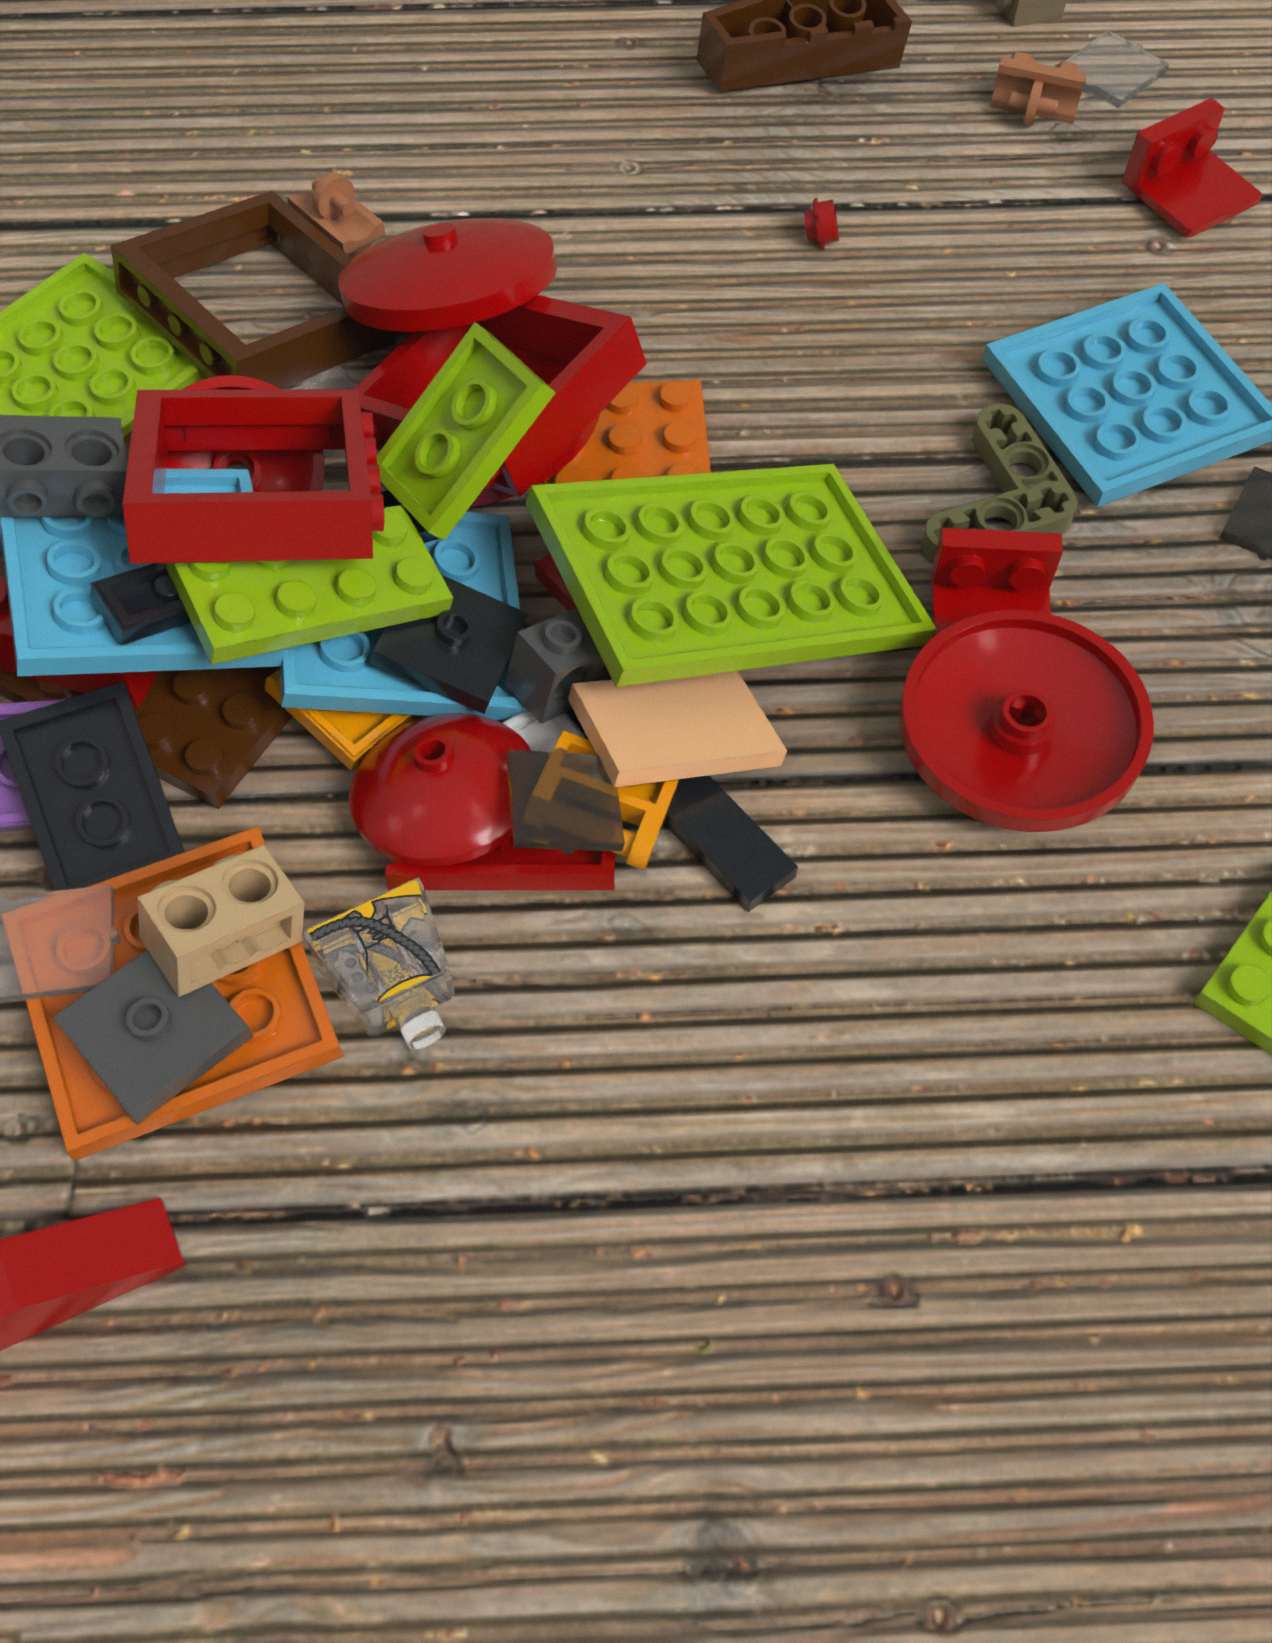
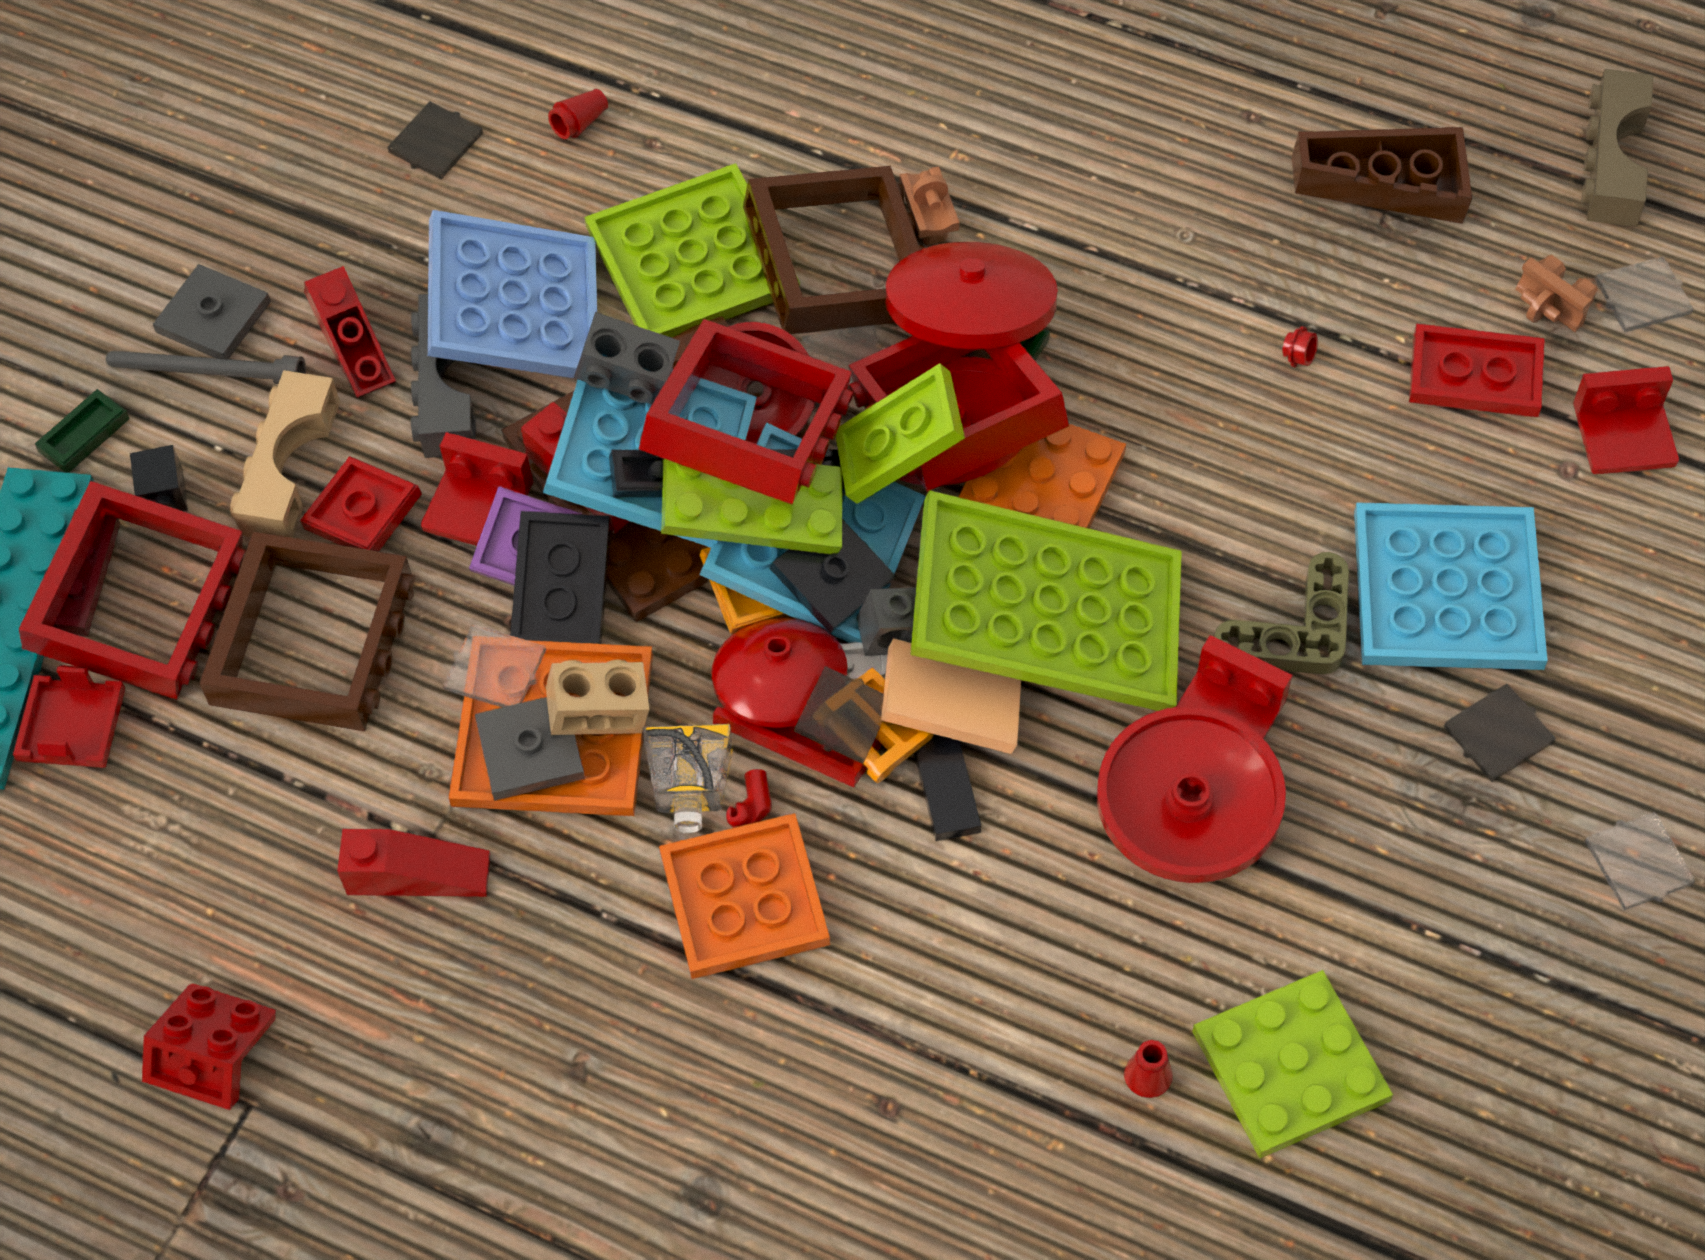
camera: 30 degrees right, 0 degrees up
(499, 970) = (757, 803): none -> red arm
(550, 1097) = (744, 896): none -> orange plate
(1012, 182) = (1477, 370): none -> red plate
(1193, 1074) = (1149, 1070): none -> red cone

